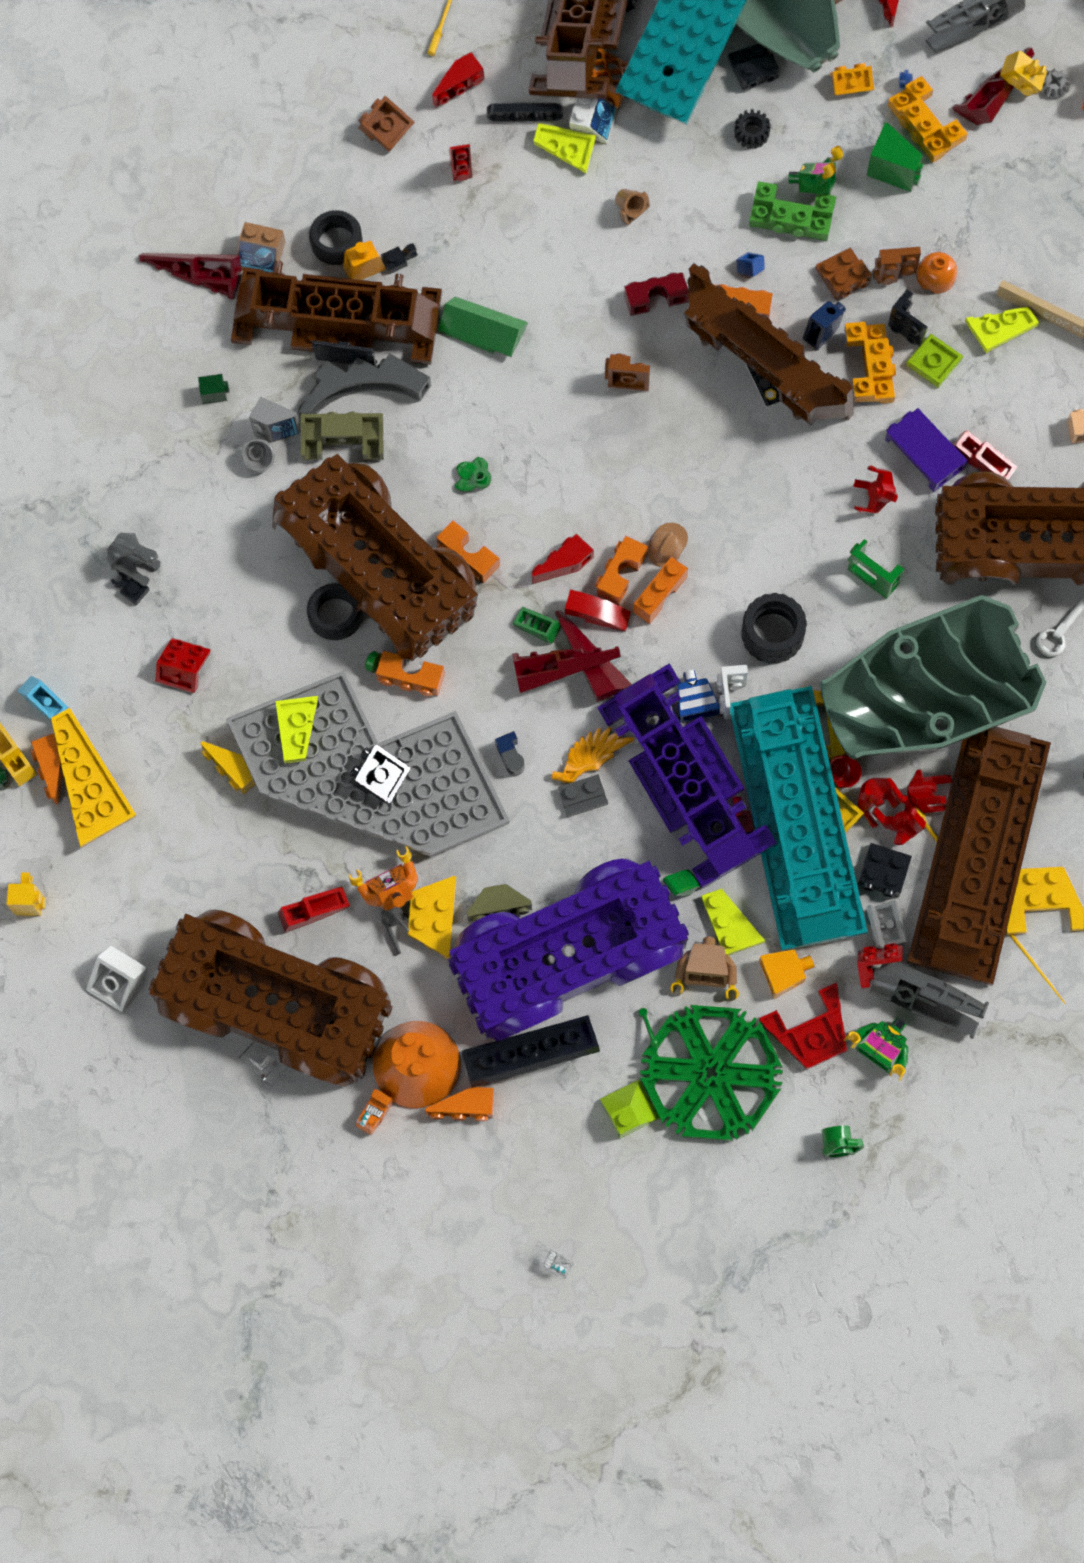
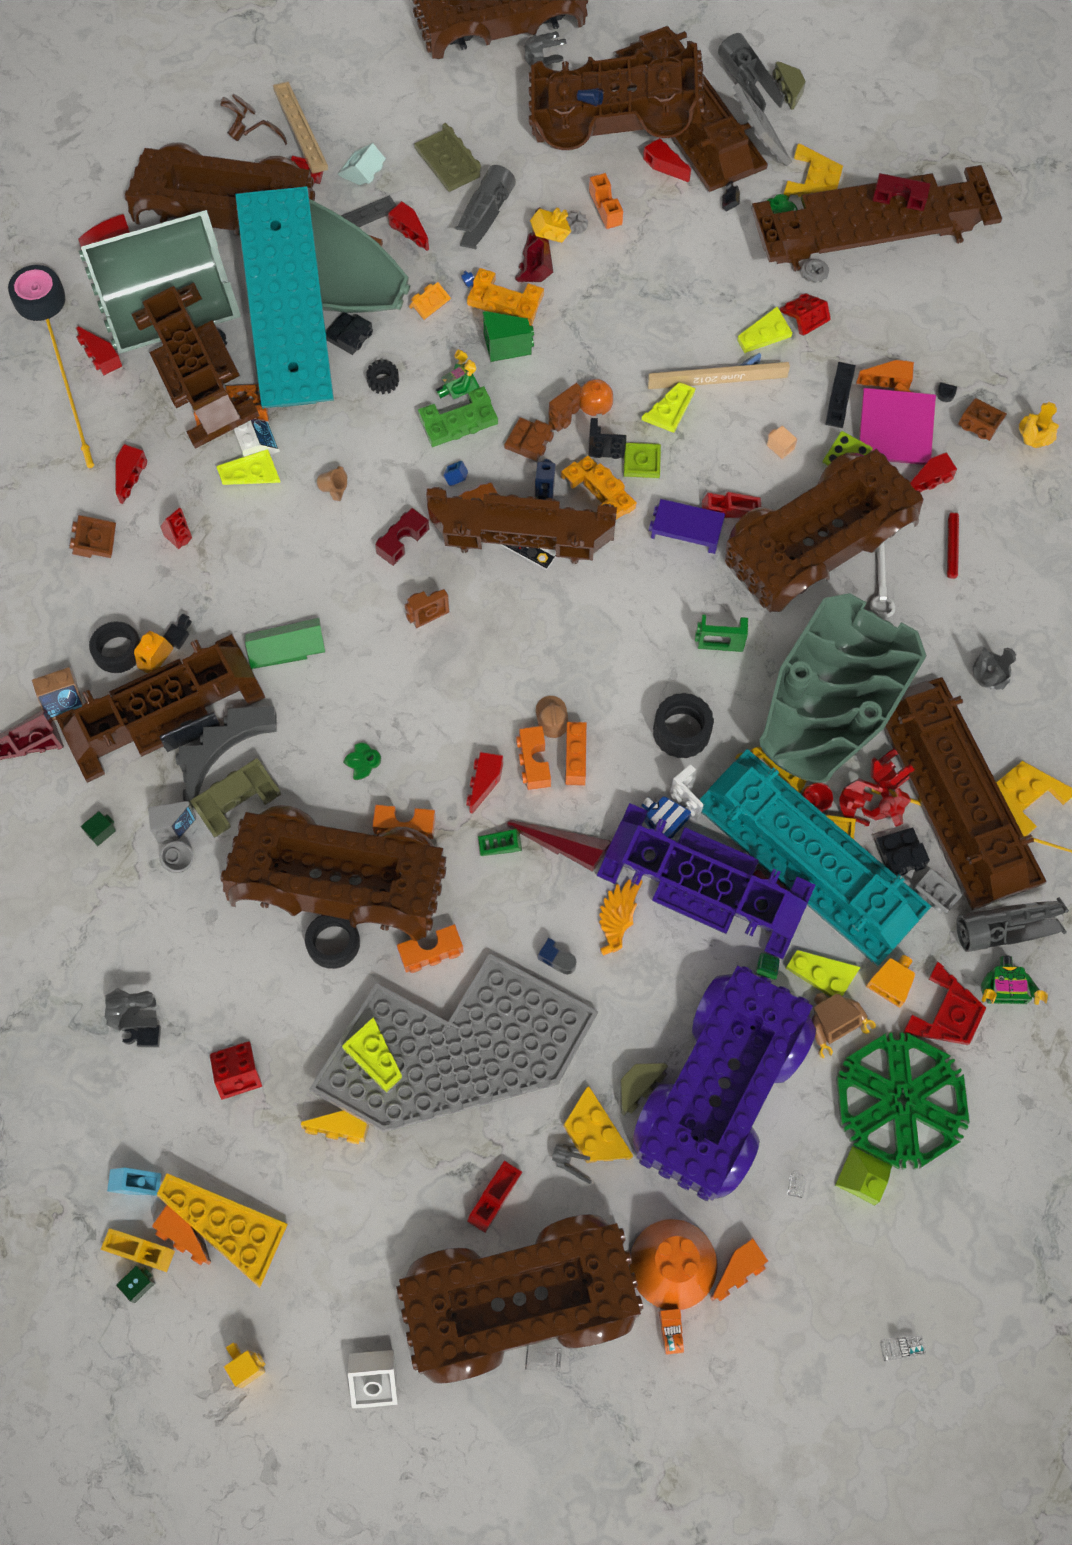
camera: 40 degrees left, 5 degrees down
(373, 661) = (393, 959): green tile -> none
(378, 773) = (470, 1046): plate -> none
(391, 887) = (546, 1133): orange torso -> none
(524, 112) = (198, 465): black beam -> none
(530, 1051) = (772, 1167): black plate -> none
(548, 667) = (531, 876): dark red wedge -> none
(583, 795) = (637, 952): dark grey plate -> none
(597, 611) = (539, 801): red slope -> none
(643, 1013) = (814, 1091): green hinge -> none
(839, 1142) = (1038, 1084): green piece -> none
(870, 956) = (952, 923): red bracket -> none
(879, 491) = (679, 575): red piece -> none

